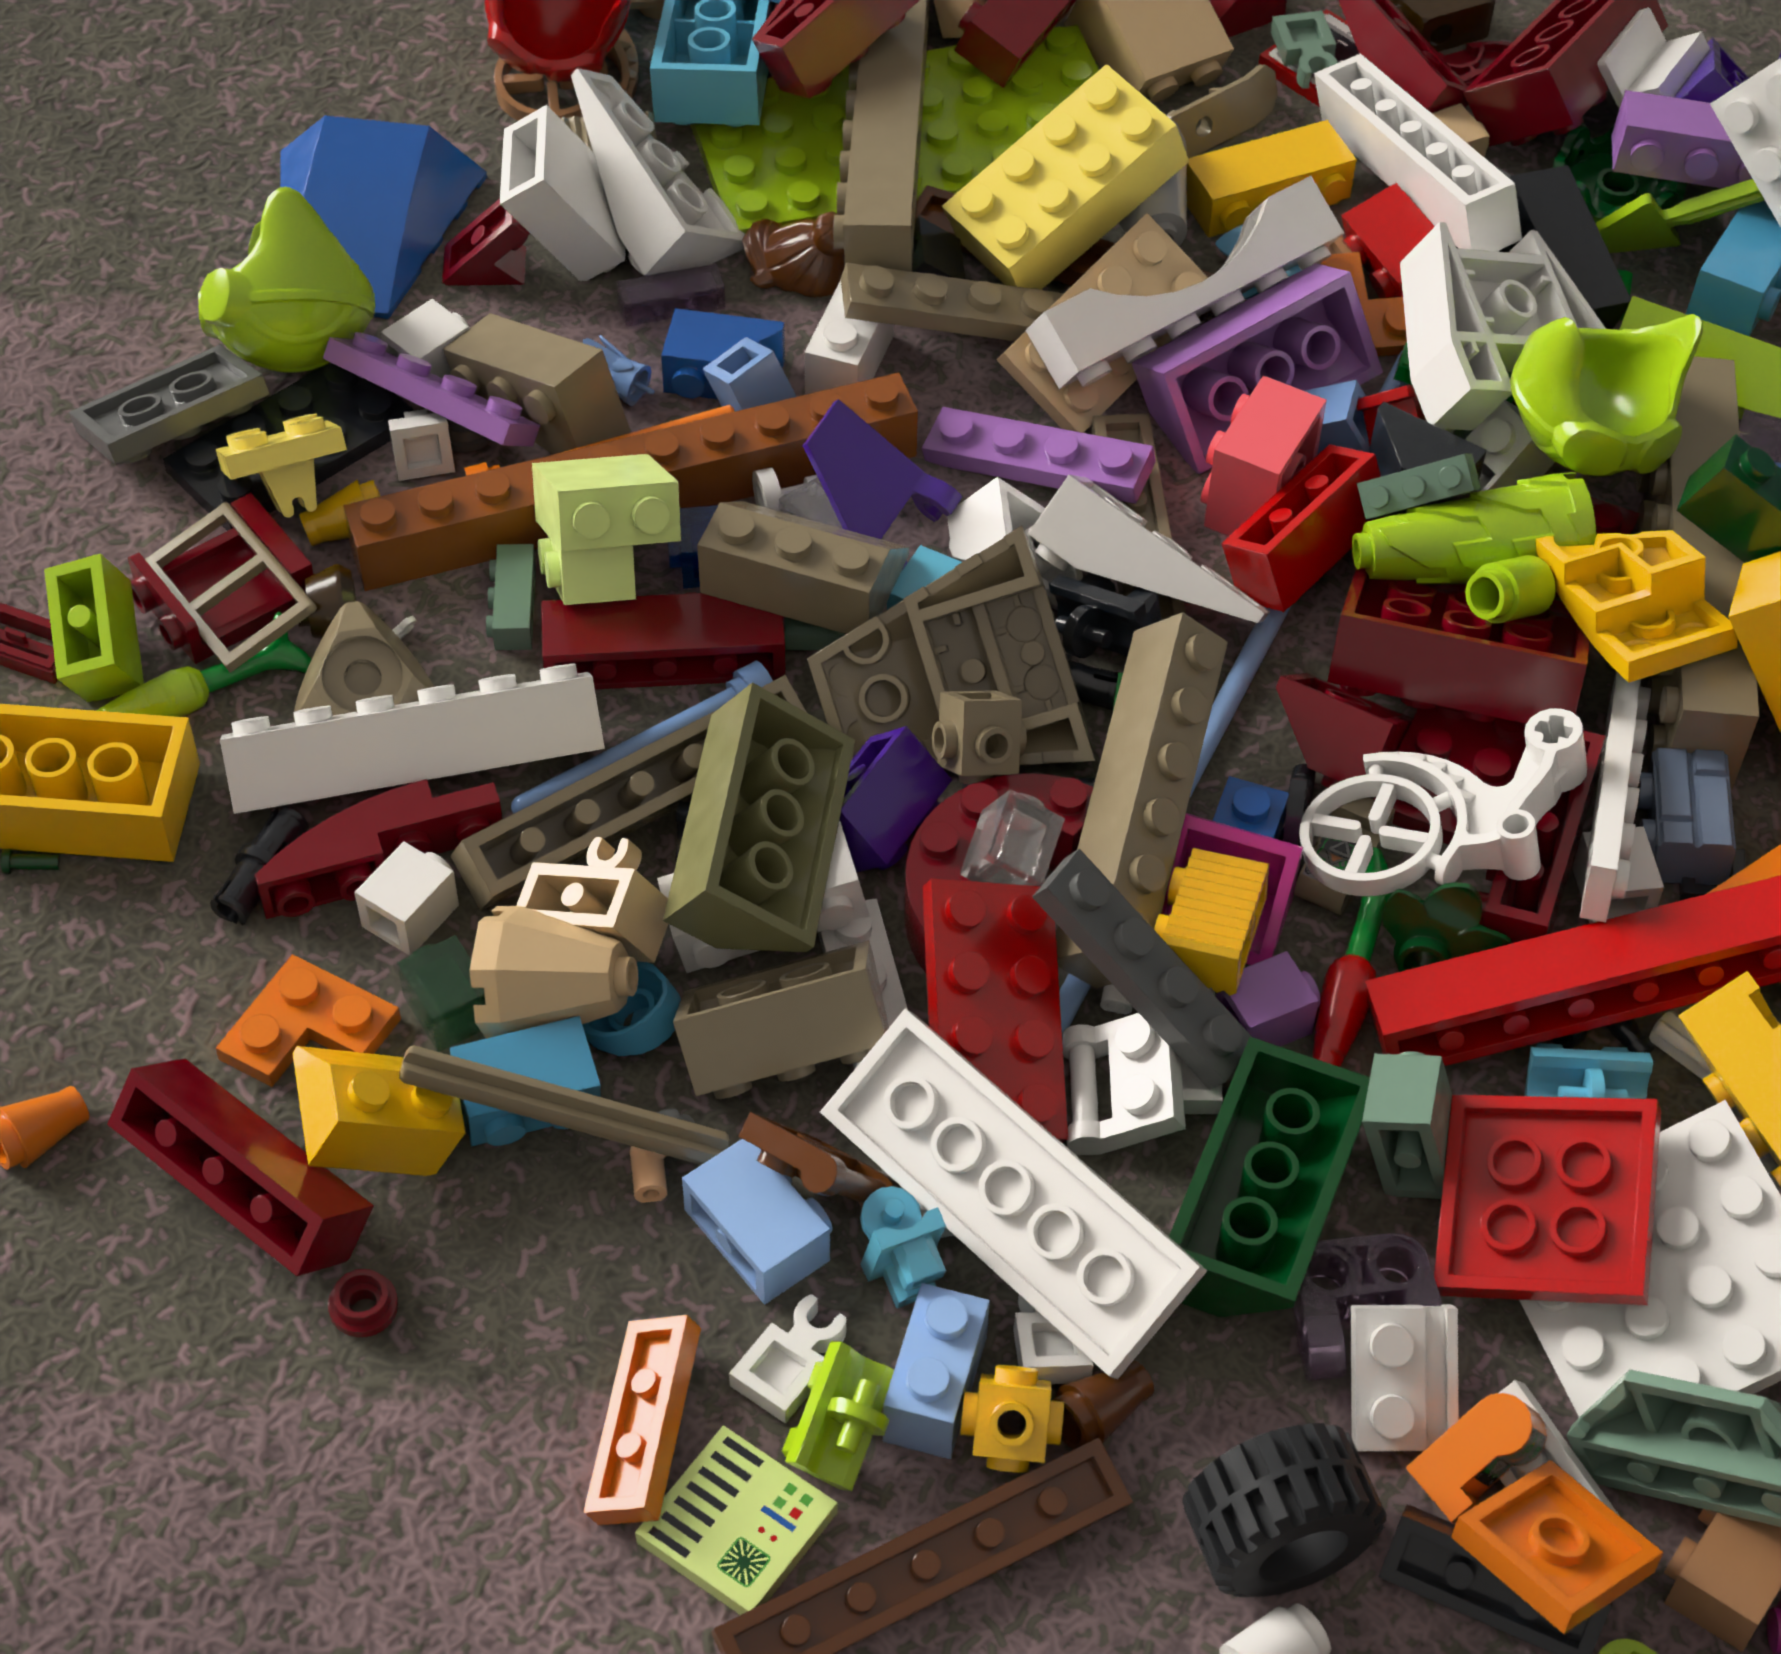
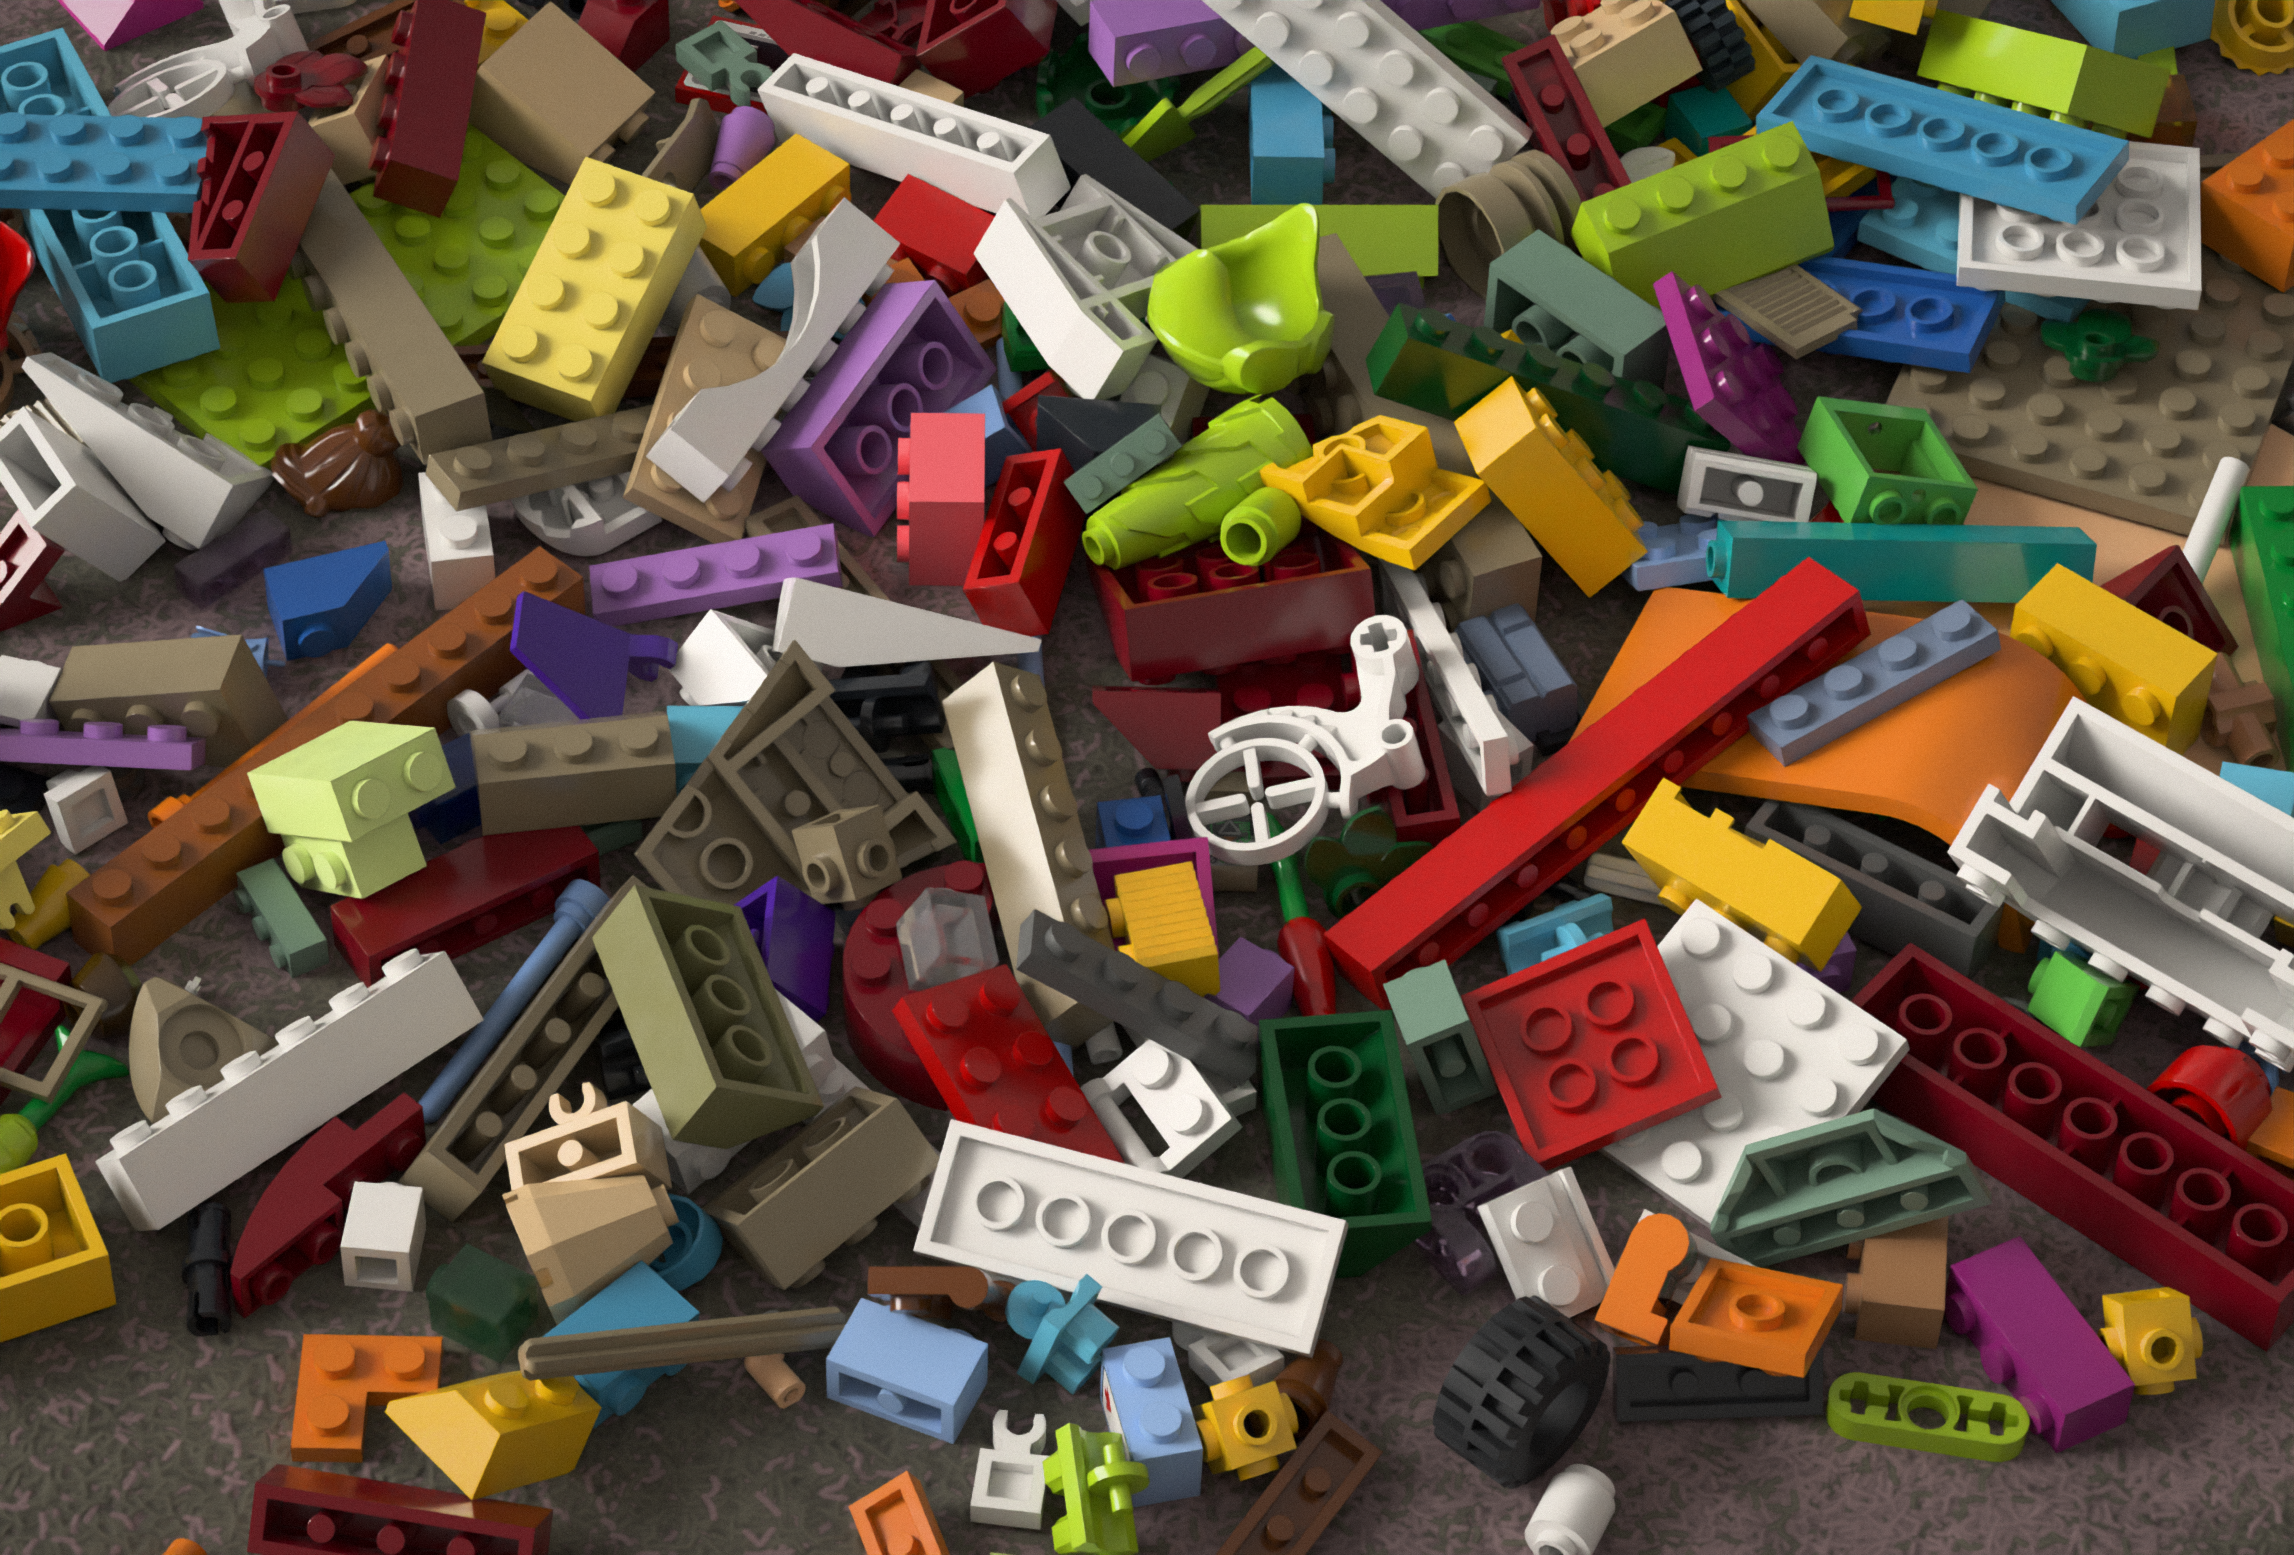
camera: 30 degrees left, 5 degrees down
(748, 376) = (387, 609): medium blue brick -> none
(962, 365) = (585, 516): none -> white slope
(1285, 111) = (741, 144): none -> medium lavender cone

